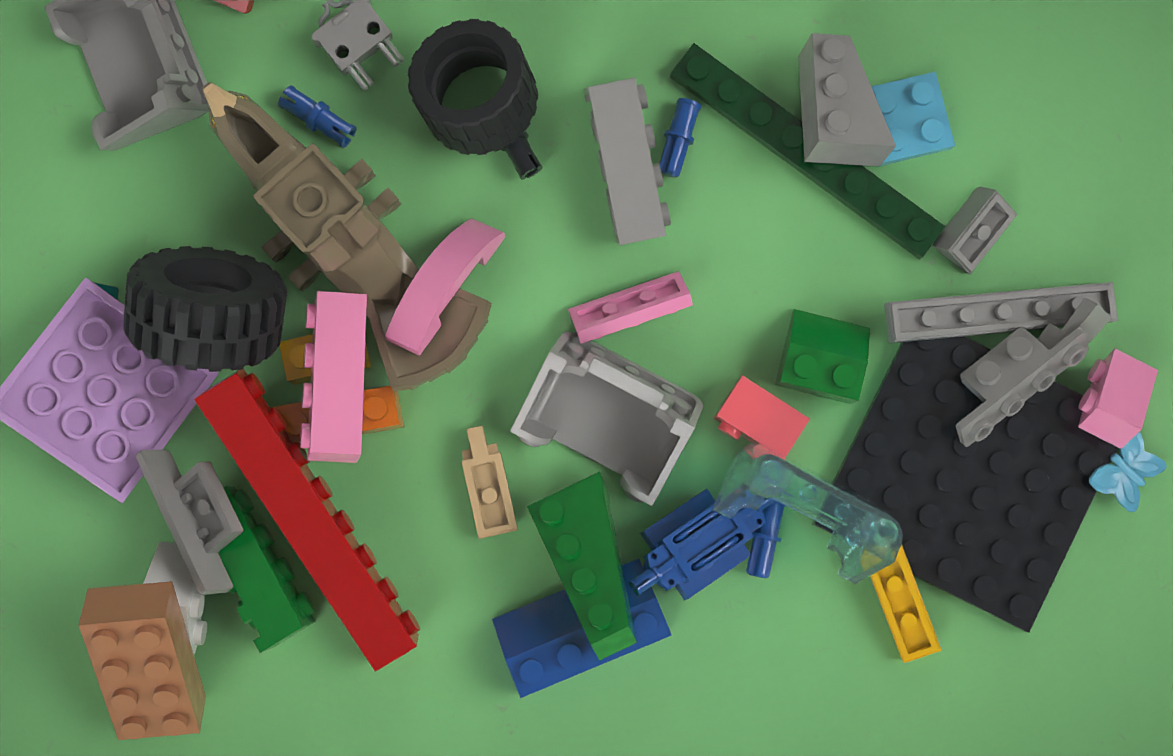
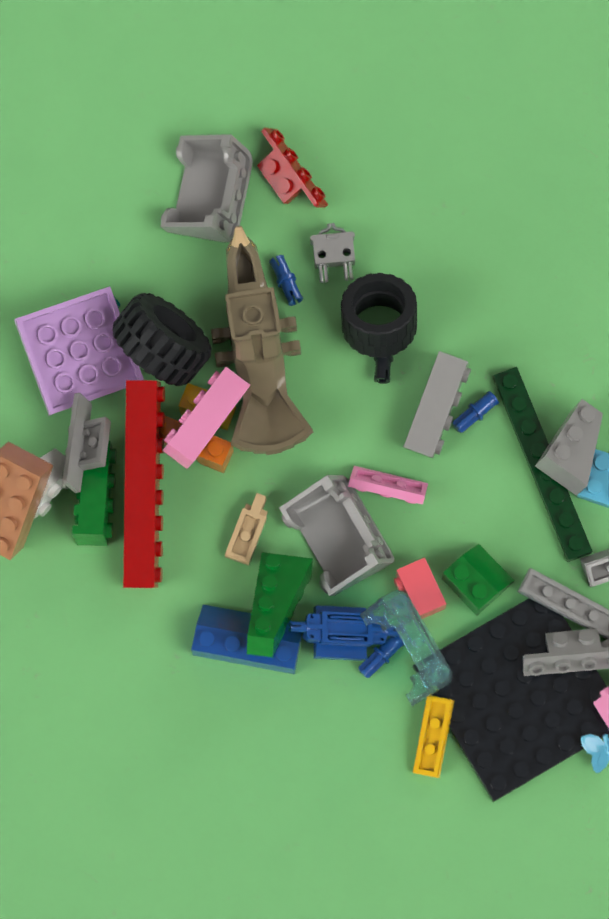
camera: 40 degrees right, 10 degrees down
(438, 281) = (292, 403): bright pink slope -> none

